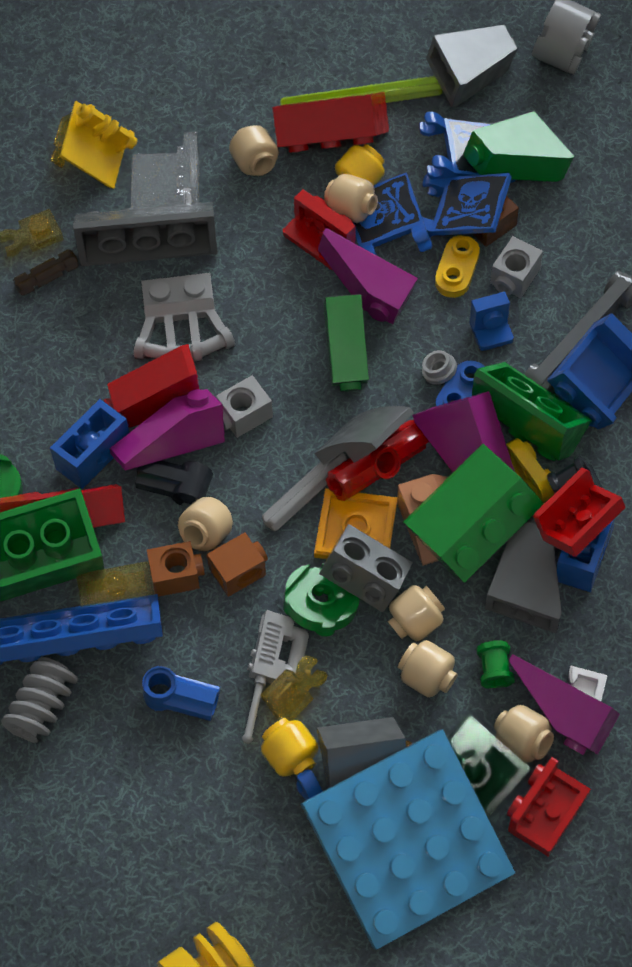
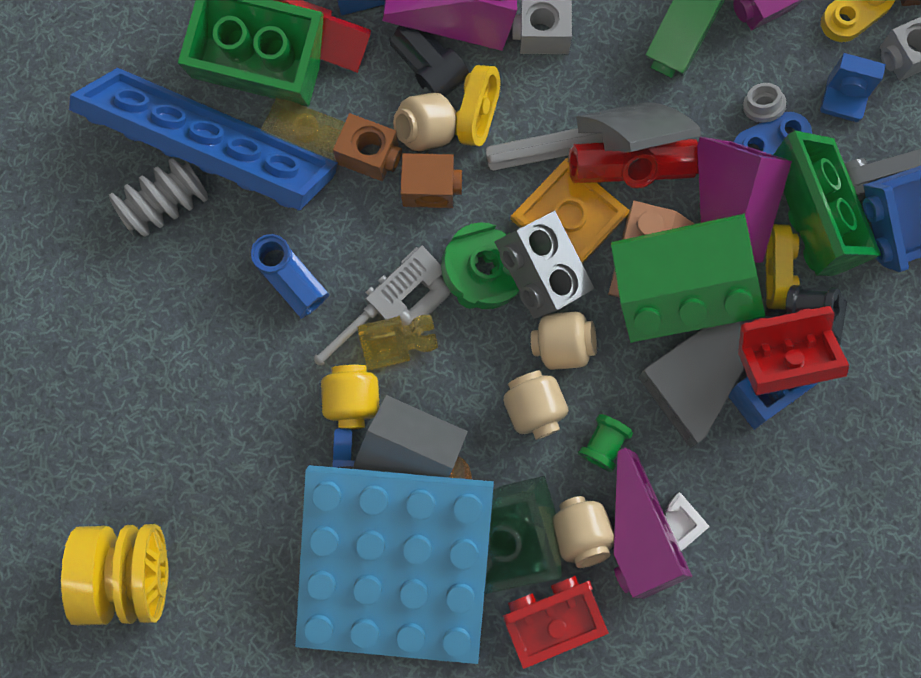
camera: 35 degrees right, 15 degrees up
(230, 479) = (478, 105): none -> yellow plate

